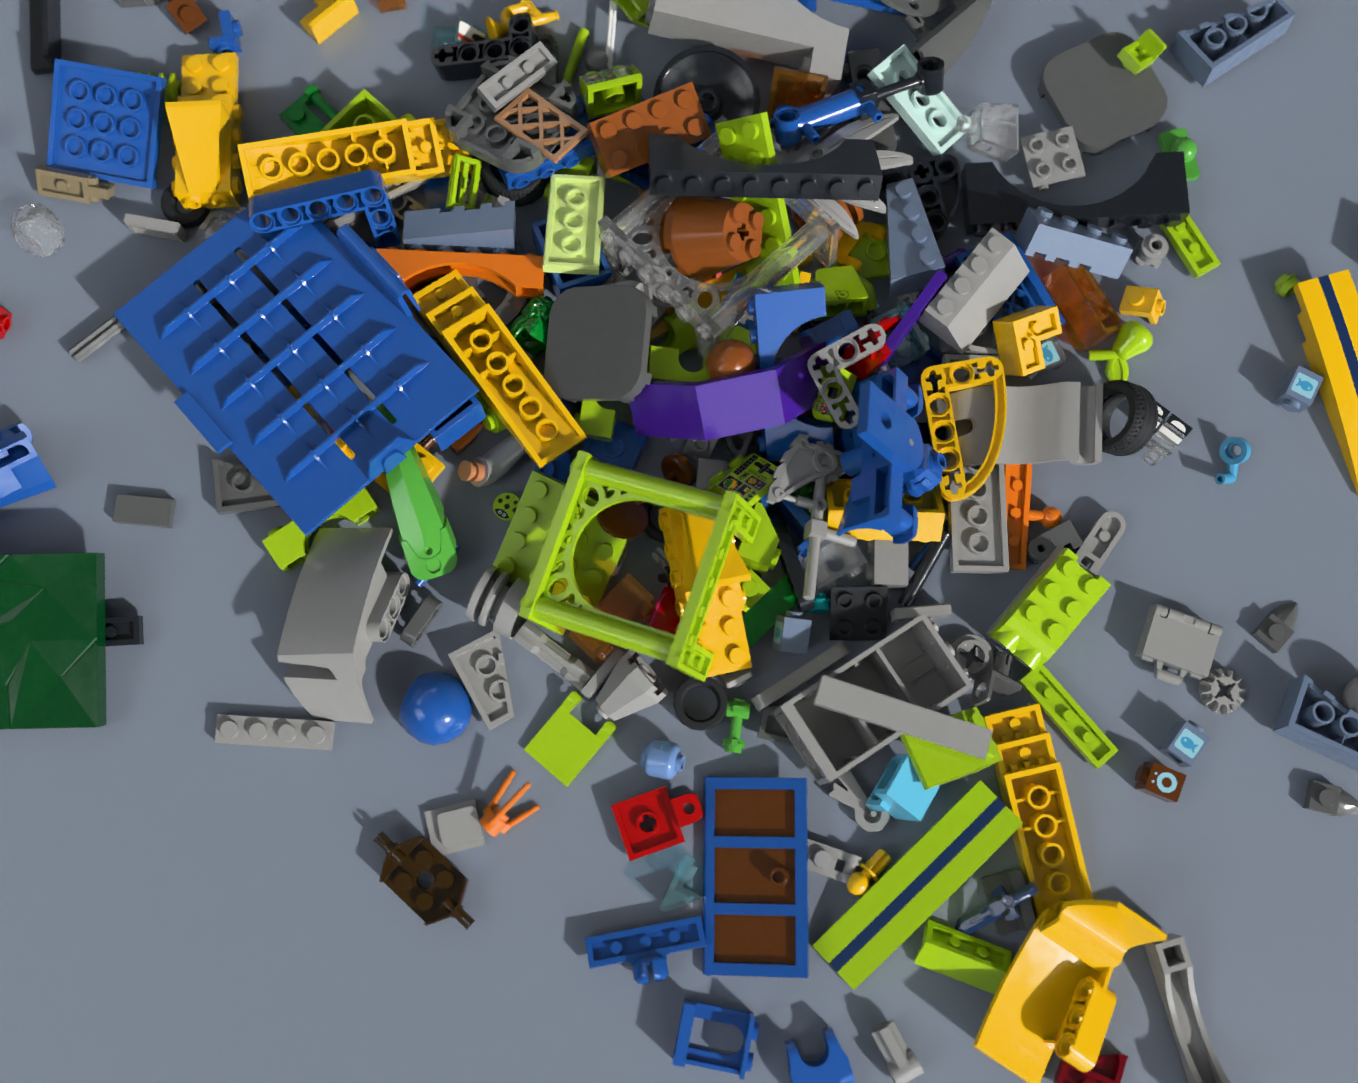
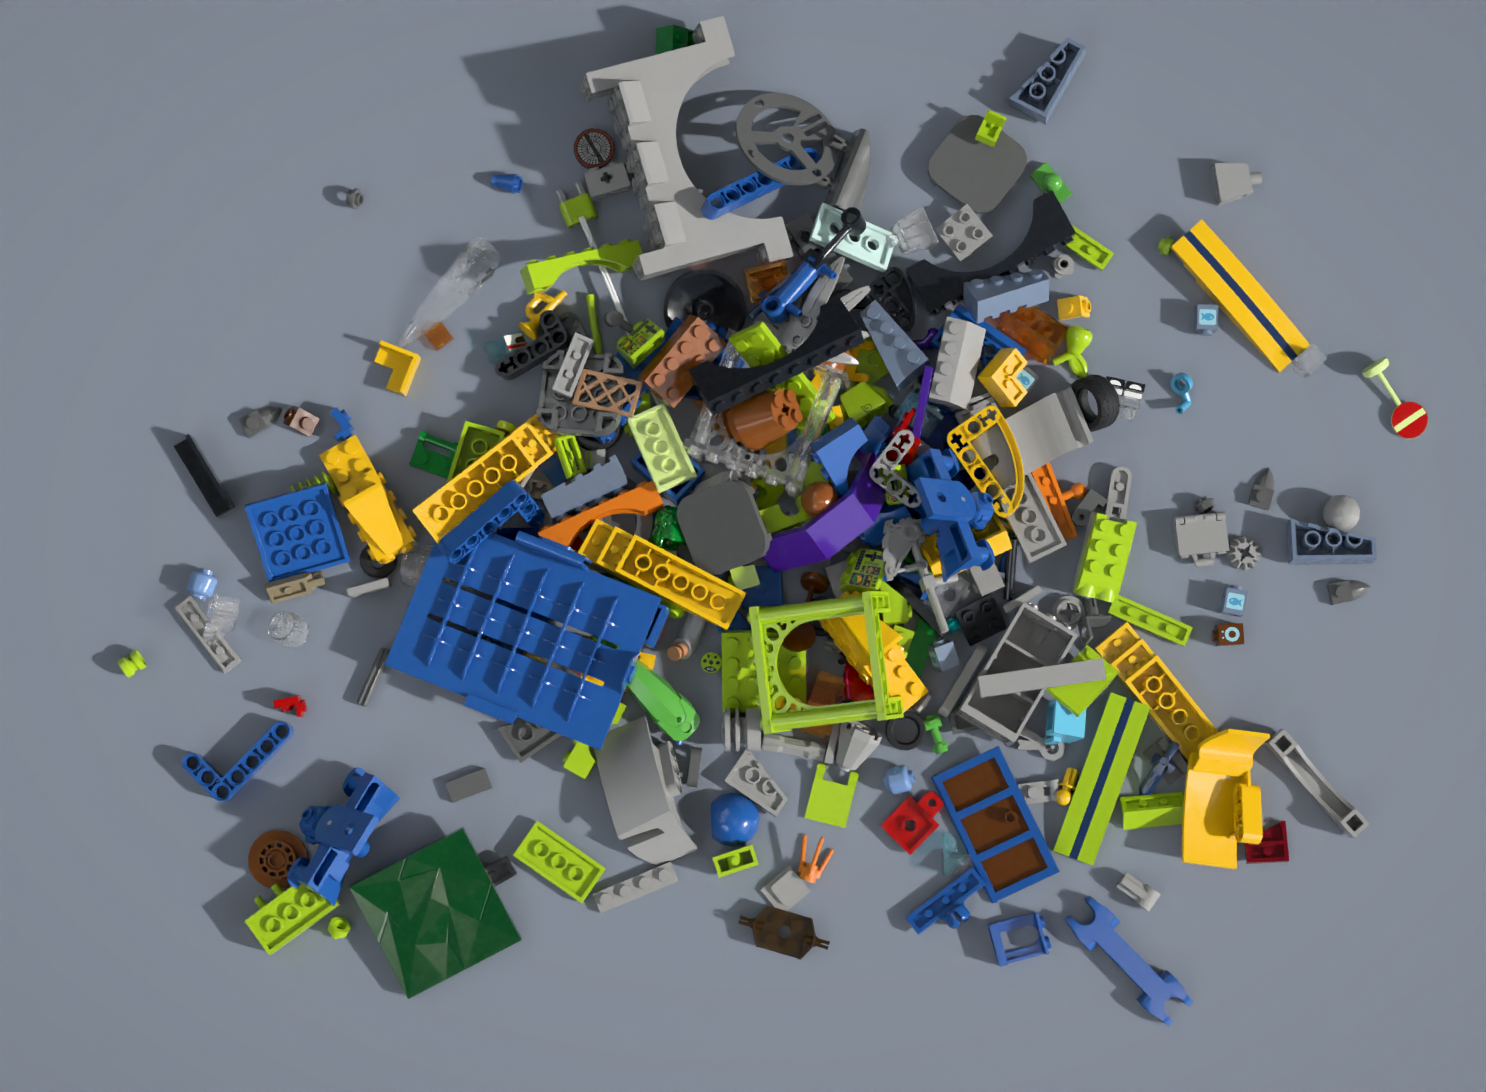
camera: 25 degrees left, 5 degrees up
(199, 655) = (559, 861): none -> lime plate
(409, 759) = (735, 860): none -> lime brick
(1199, 607) = (1204, 505): none -> dark grey plate

